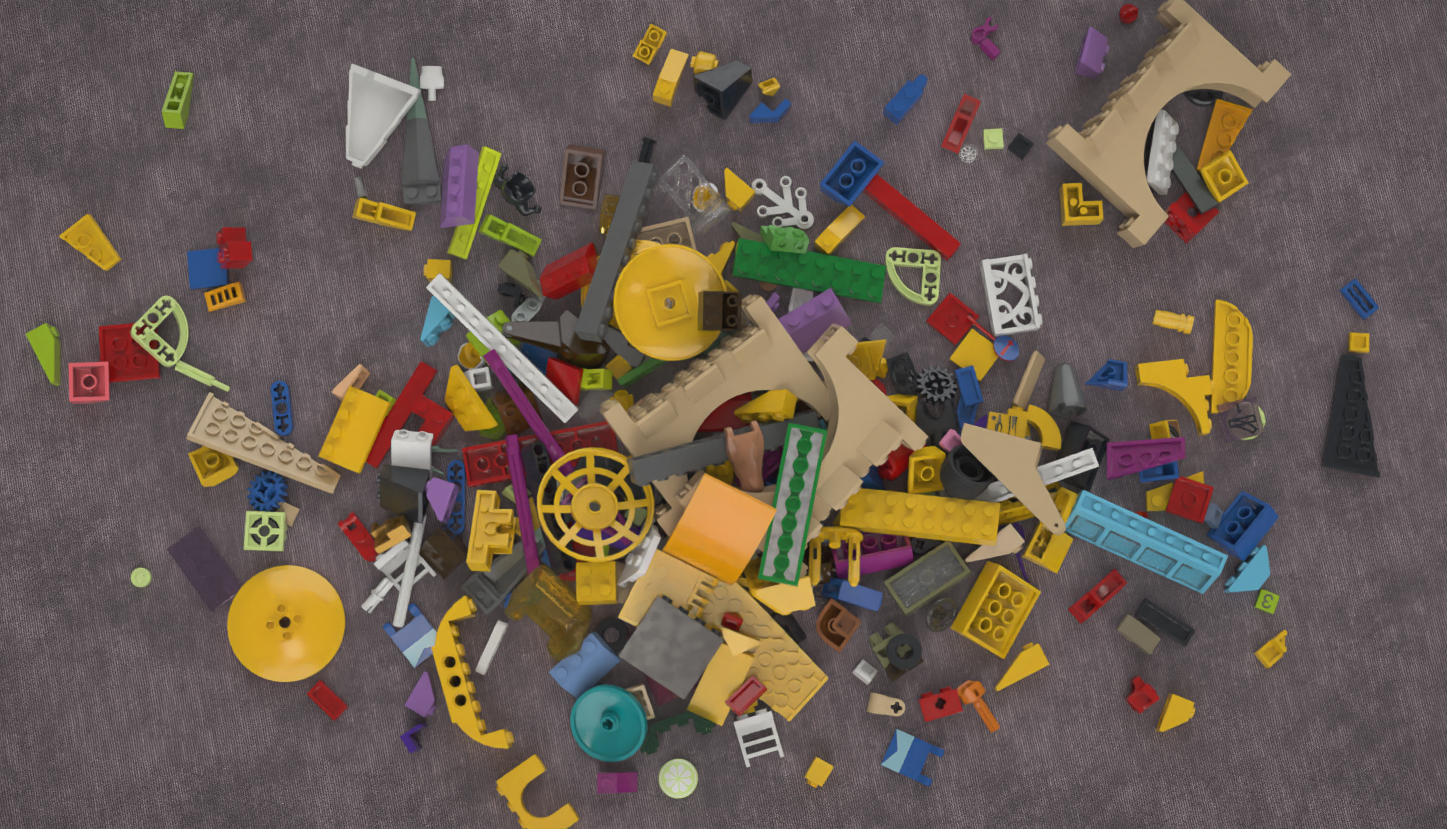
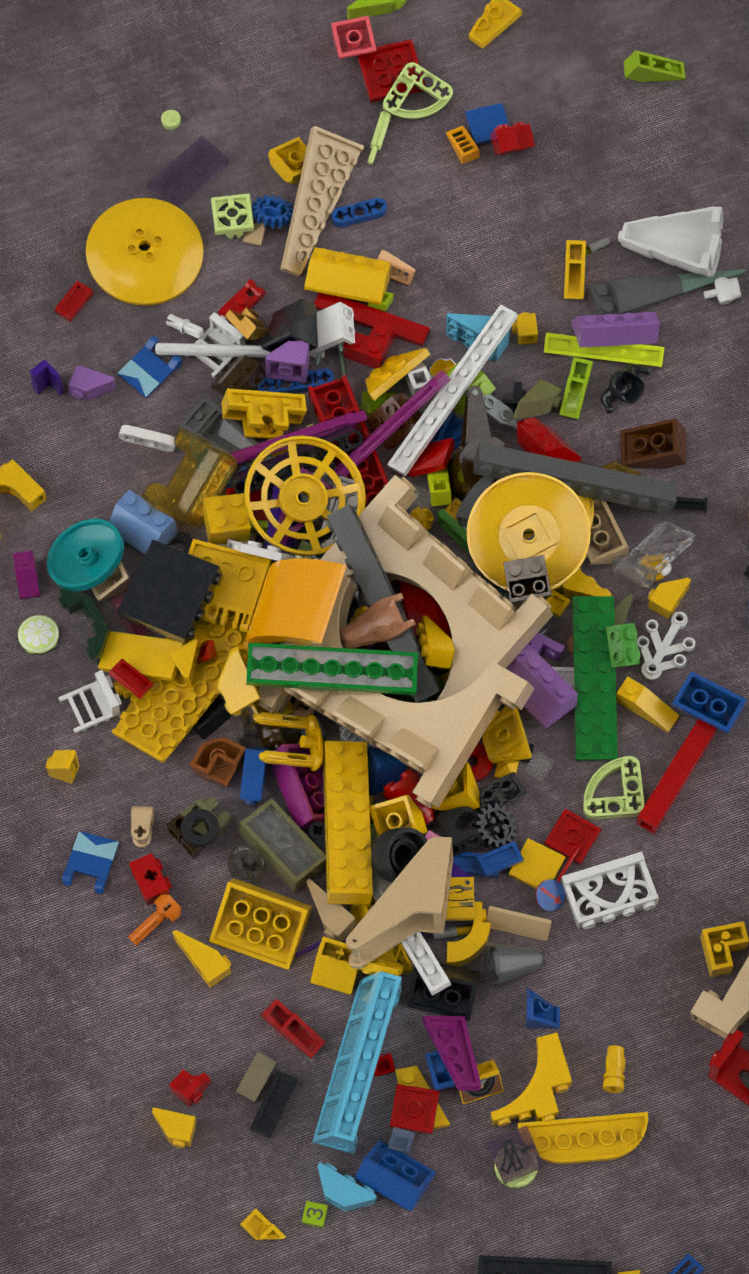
camera: 80 degrees right, 15 degrees down
(445, 648) = (110, 407): yellow slope -> none
(865, 672) = (175, 801): white slope -> none

